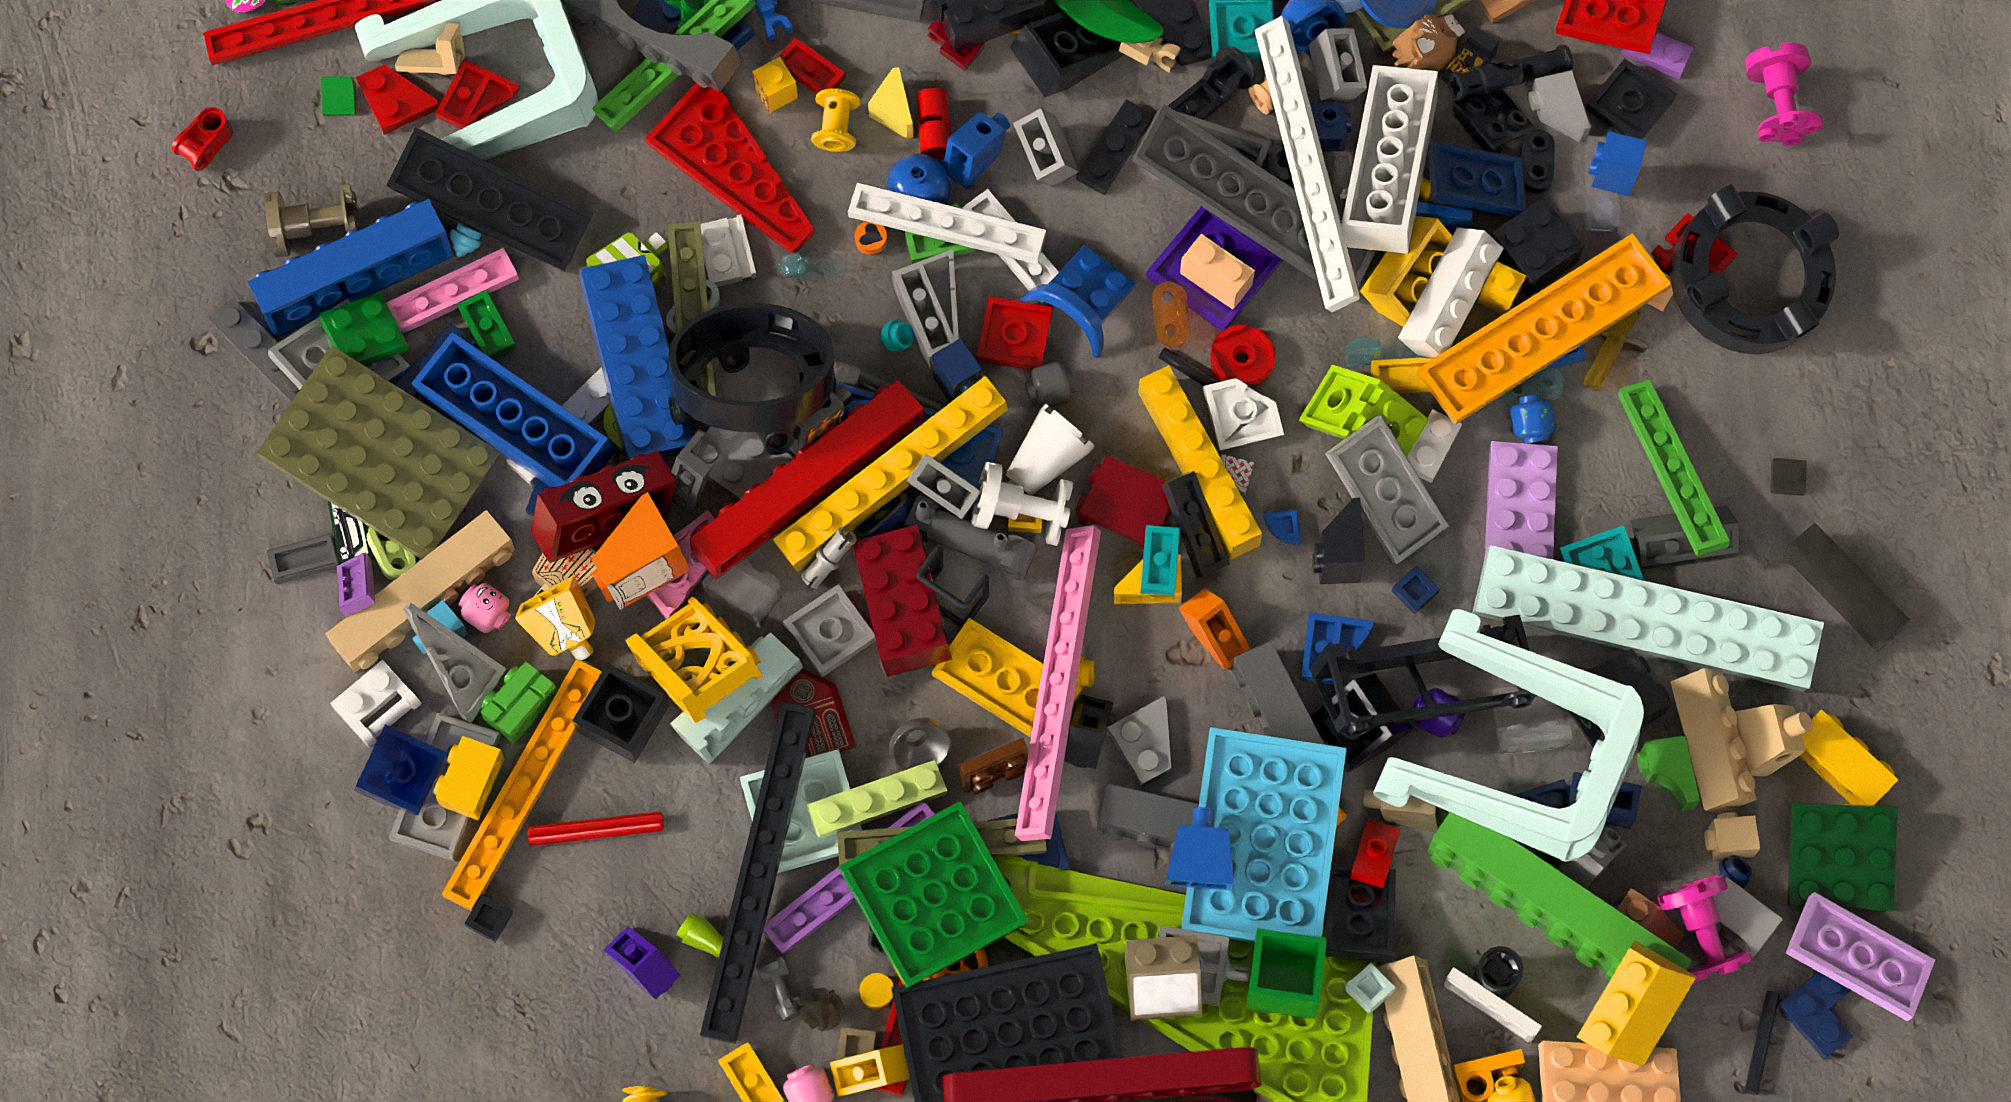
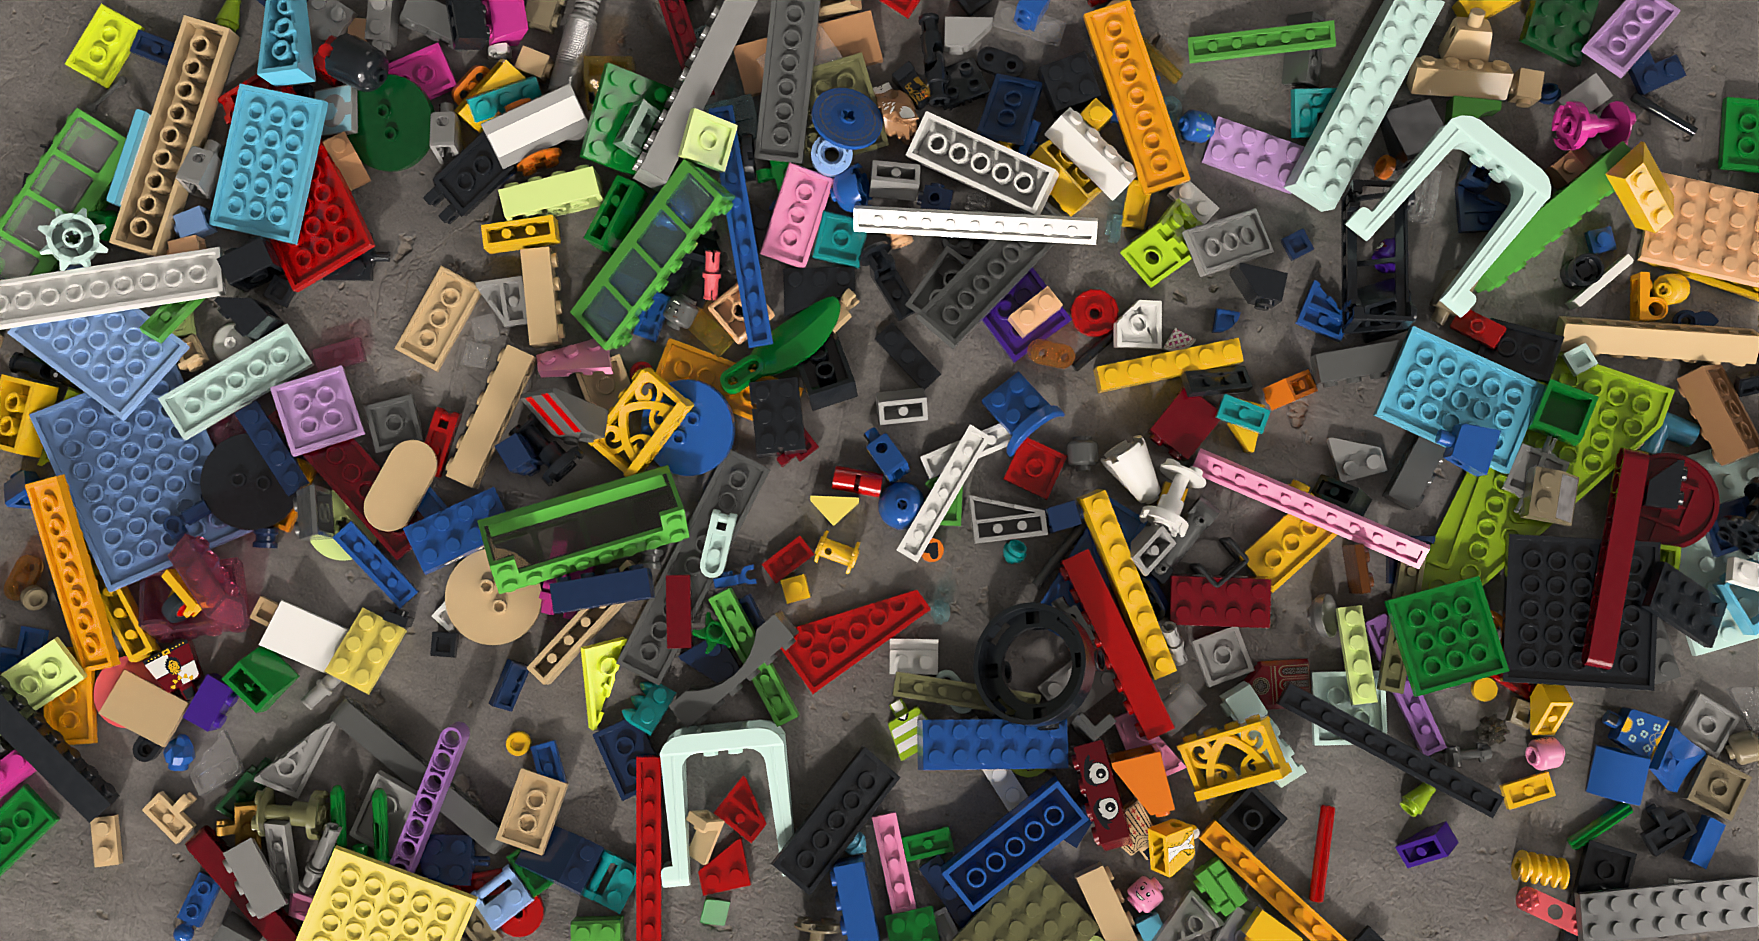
camera: 75 degrees left, 15 degrees up
(1552, 998) = (1600, 240): none -> blue plate

